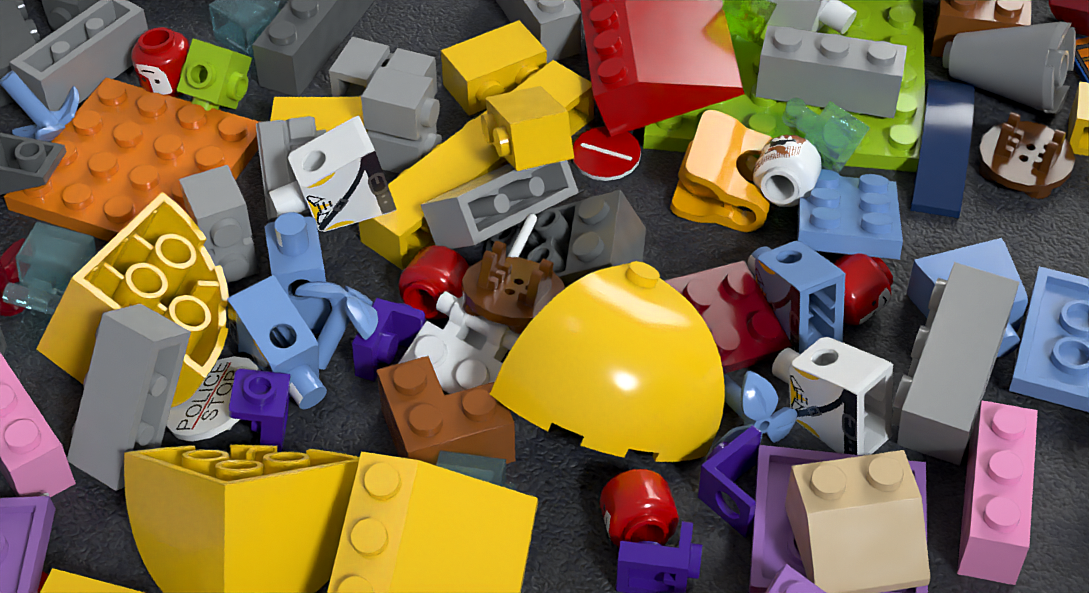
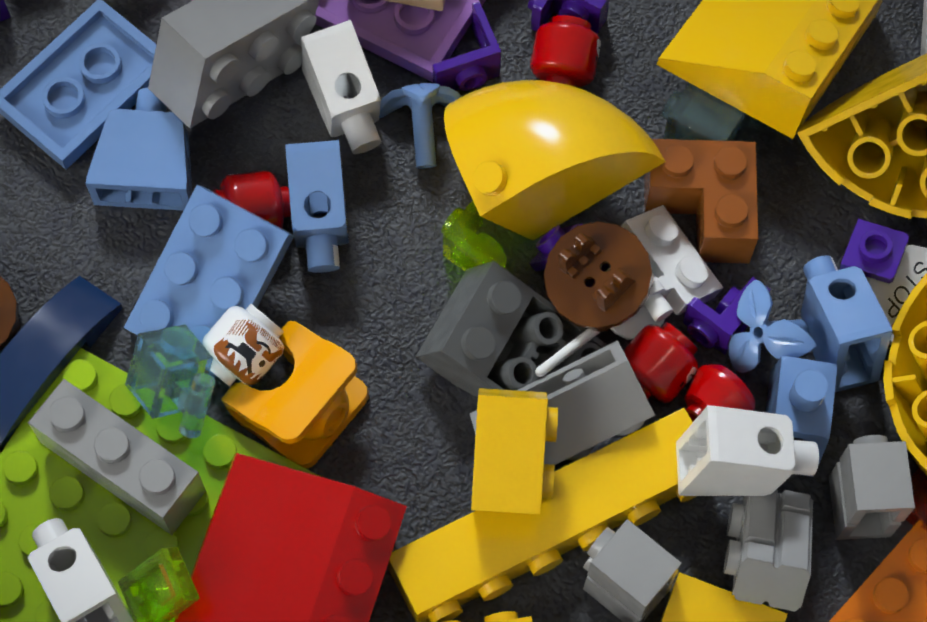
camera: 160 degrees left, 20 degrees up
(371, 269) = (717, 387): none -> red cone
(606, 156) = (413, 488): red piece -> none
(735, 314) = (399, 204): dark red plate -> none

